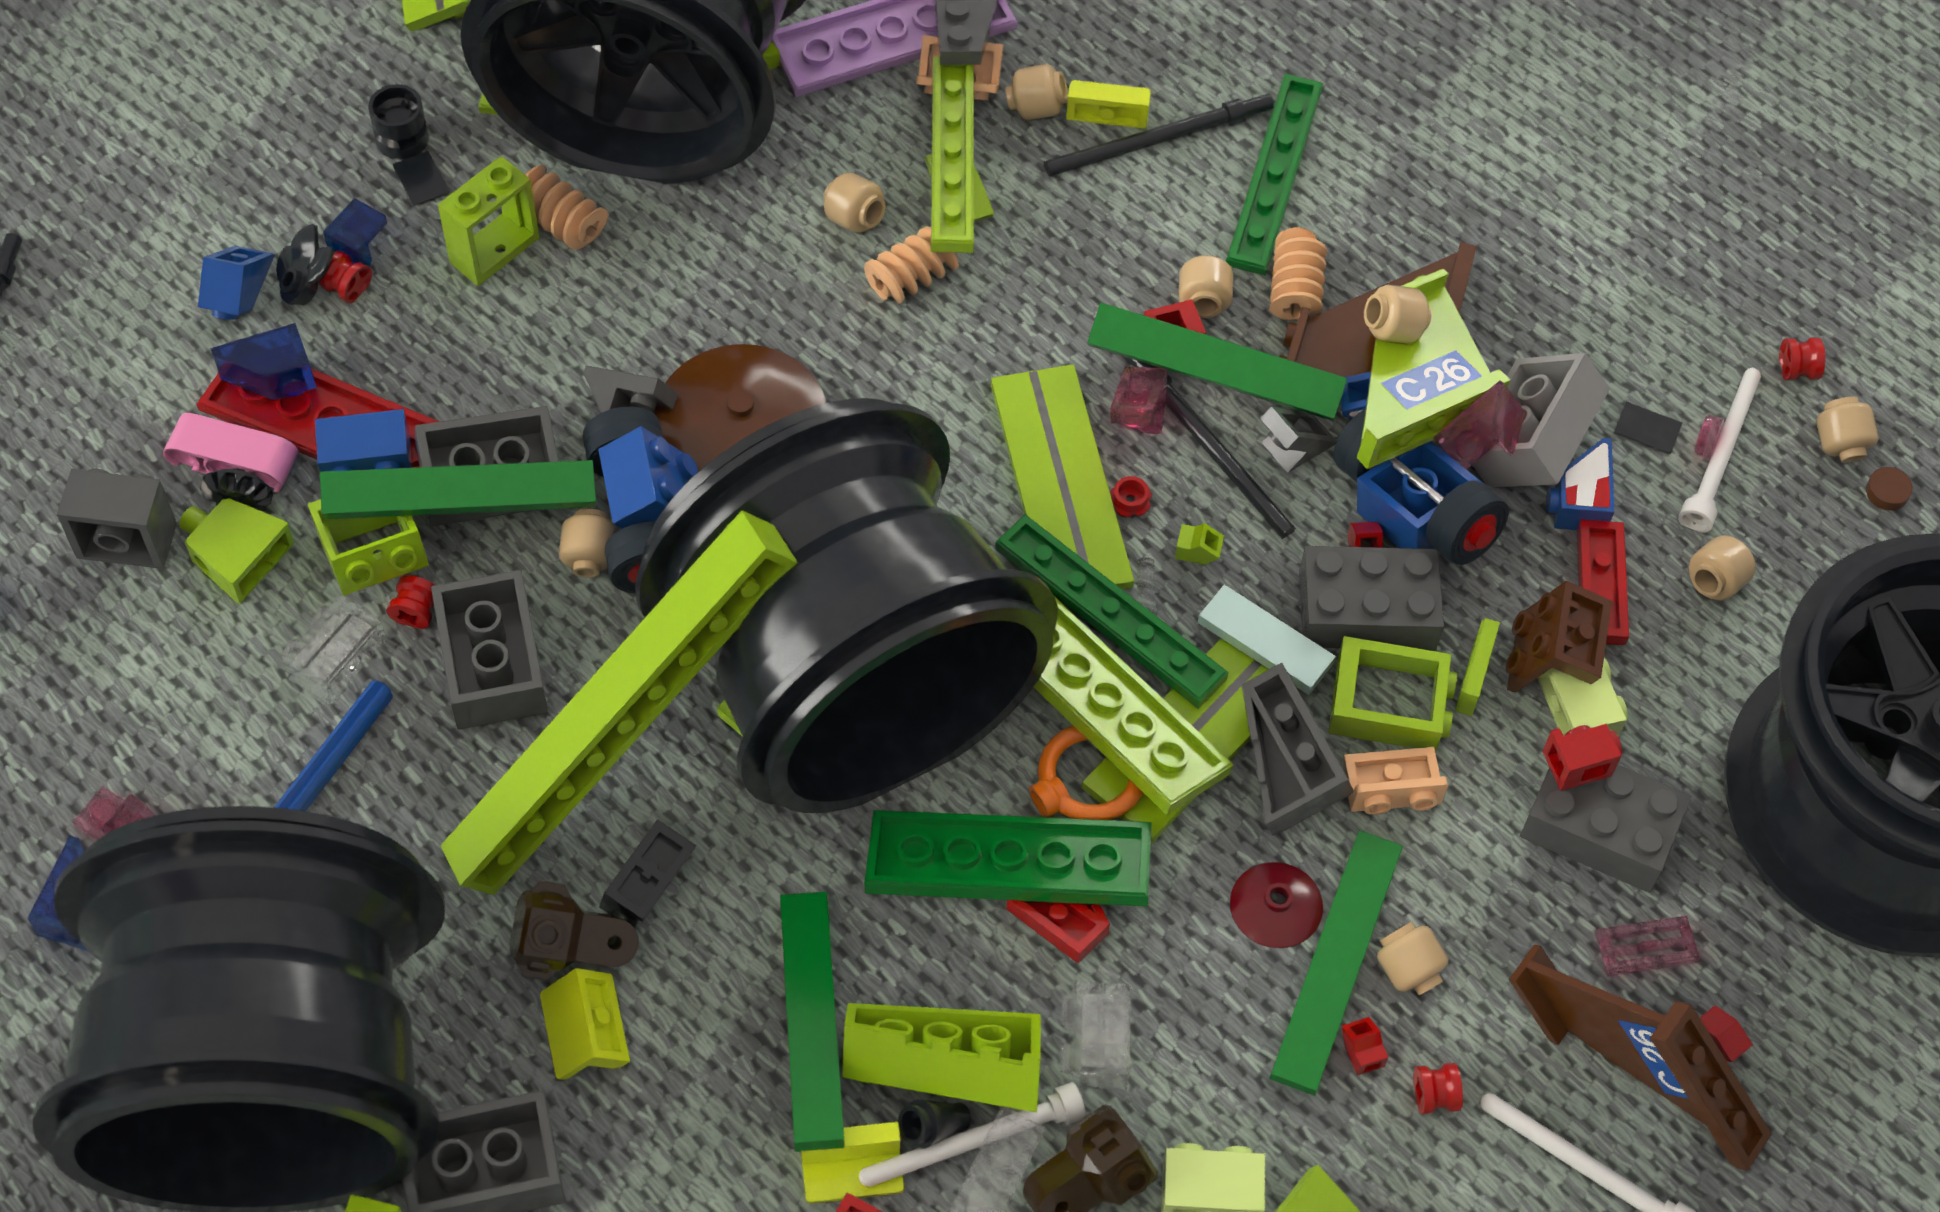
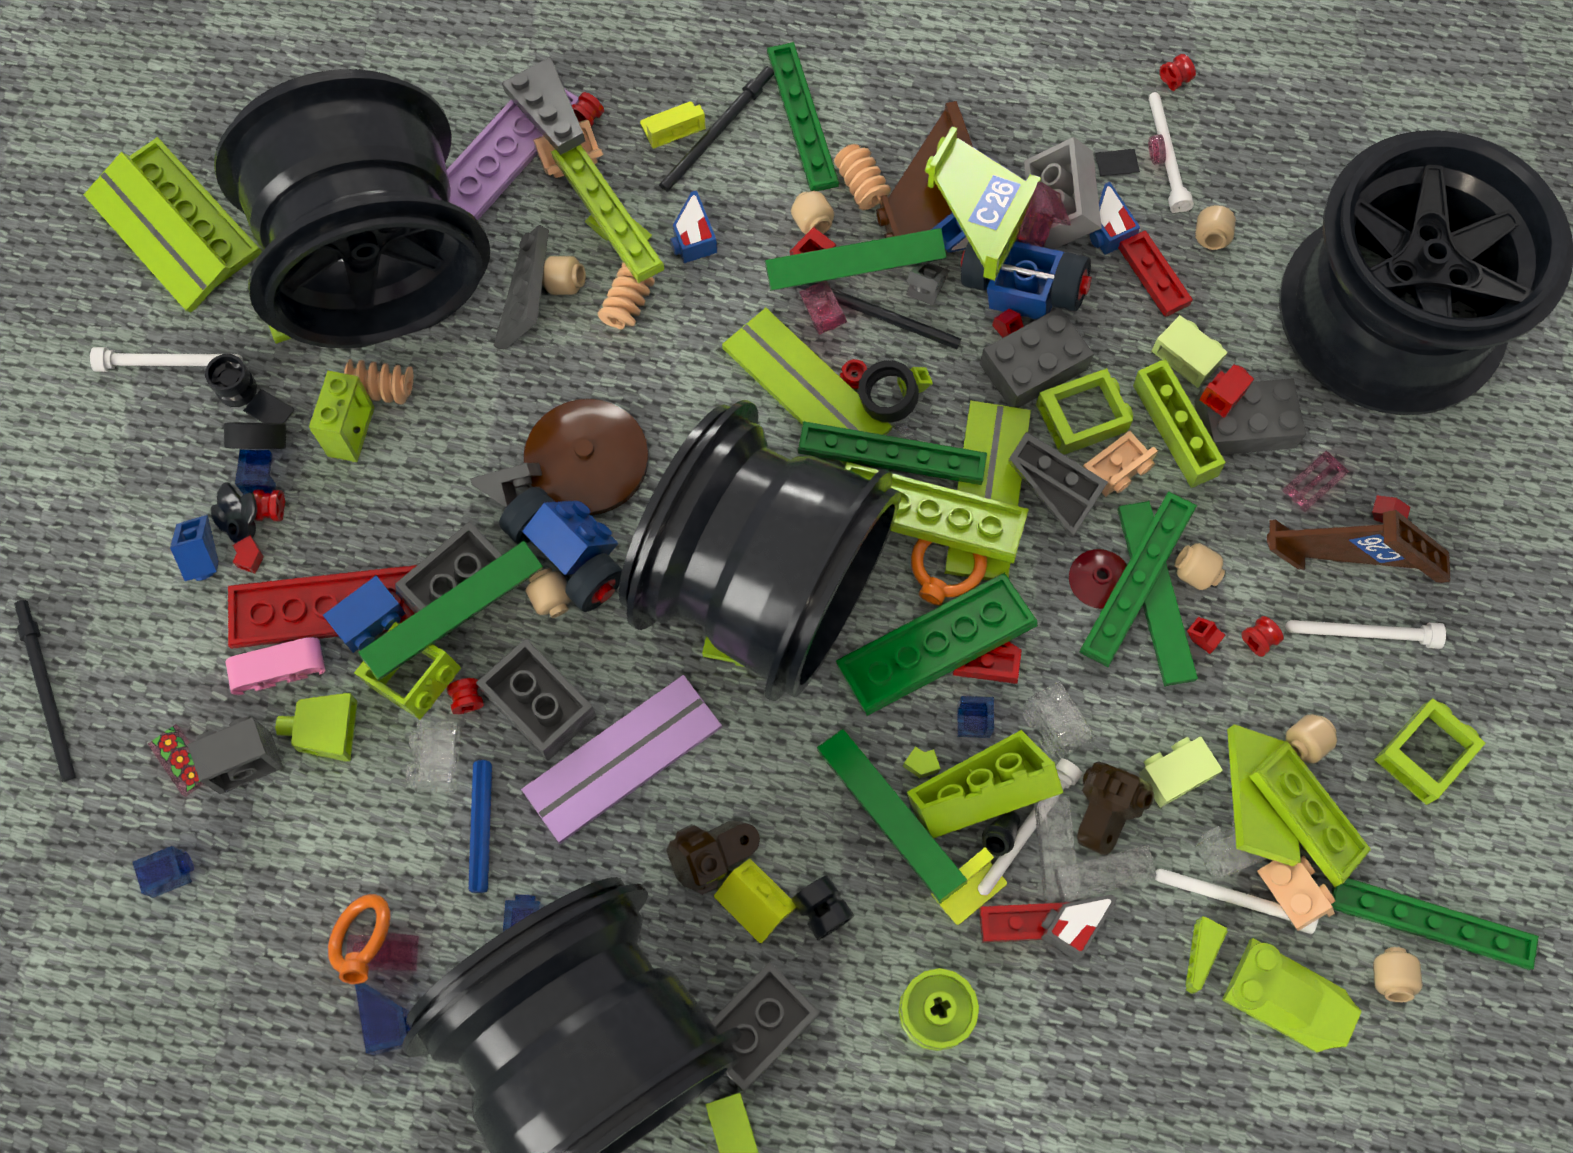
camera: 30 degrees left, 10 degrees up
(51, 483) = (176, 759): none -> tile
(80, 812) = (355, 967): none -> orange piece
(237, 486) = (299, 688): black gear -> none
(267, 363) = (261, 593): clear blue slope -> none
(281, 29) = (104, 359): none -> white piece
(286, 312) = (248, 555): none -> red piece
(381, 191) = (254, 435): none -> black tyre
(454, 774) = (621, 759): none -> lavender tile
(617, 704) = (667, 695): lime brick -> none
(647, 873) = (731, 784): black hinge -> none
(654, 1078) = (817, 896): none -> black wheel
(798, 192) = (524, 292): none -> dark grey wing
(894, 986) = (922, 763): none -> lime piece
(998, 970) = (975, 716): none -> clear blue panel
(1014, 34) = (588, 108): none -> red wheel
(1037, 92) = (626, 140): tan head -> none
(1044, 232) = (693, 231): none -> slope
(1145, 506) = (874, 374): none -> black tyre
(1266, 638) = (993, 418): light aqua tile -> none
(1320, 927) = (1138, 579): none -> green tile
(1397, 314) = (950, 171): tan head -> none
(1477, 666) = (1121, 366): lime tile -> none
(1502, 771) = (1178, 423): none -> lime brick
(1562, 633) = (1158, 322): reddish brown bracket -> none
(1847, 429) = (1229, 102): tan head -> none
(1889, 488) = (1271, 126): reddish brown tile -> none

